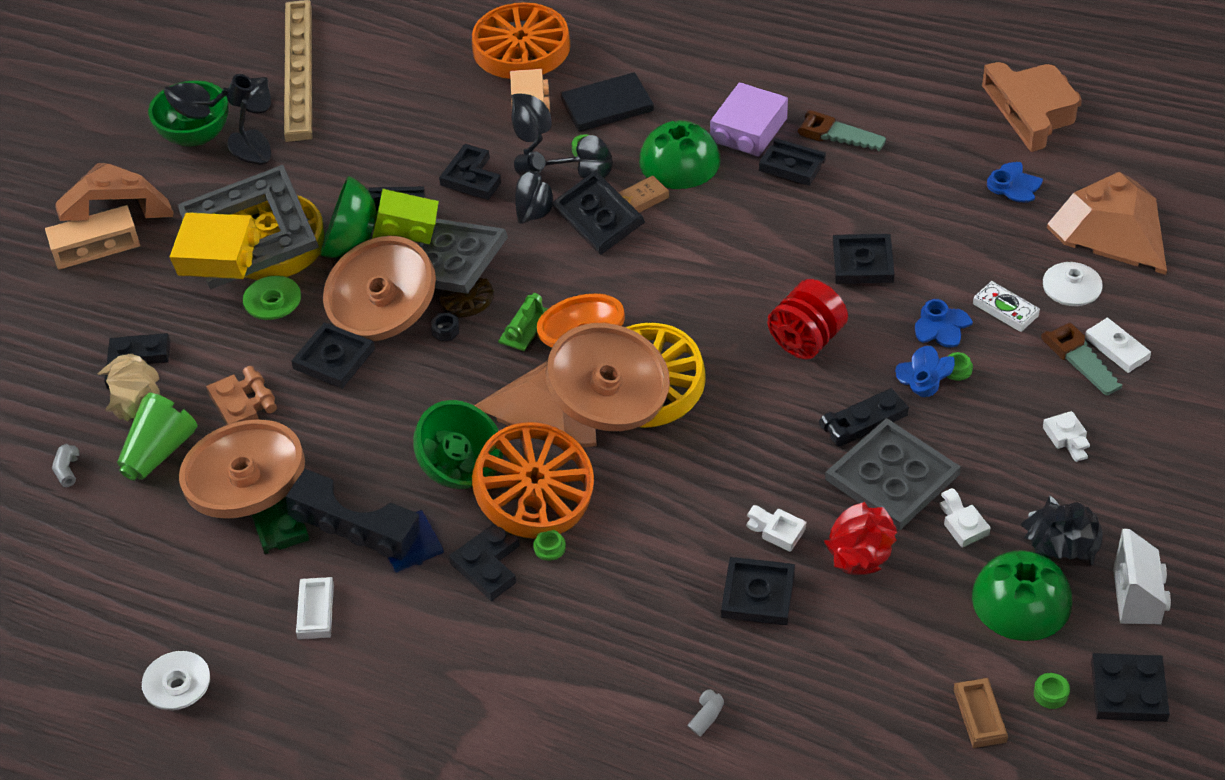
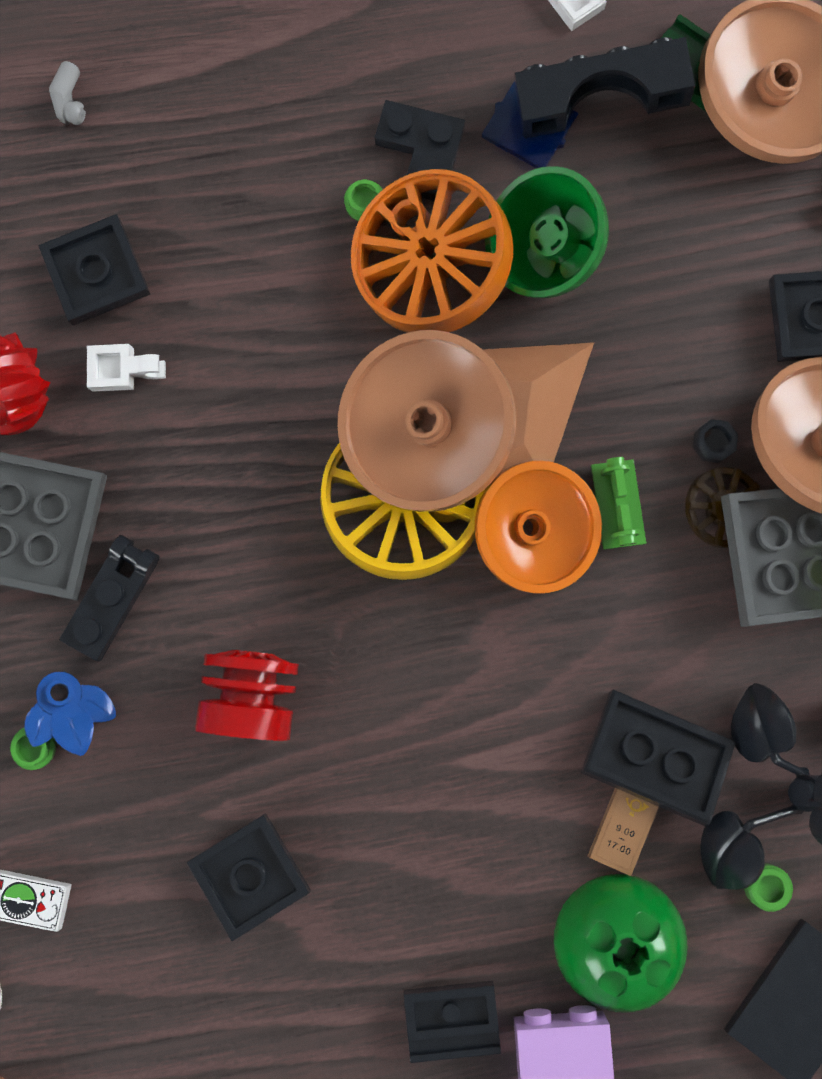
camera: 150 degrees right, 35 degrees up
(941, 323) = (84, 810): blue plate -> none

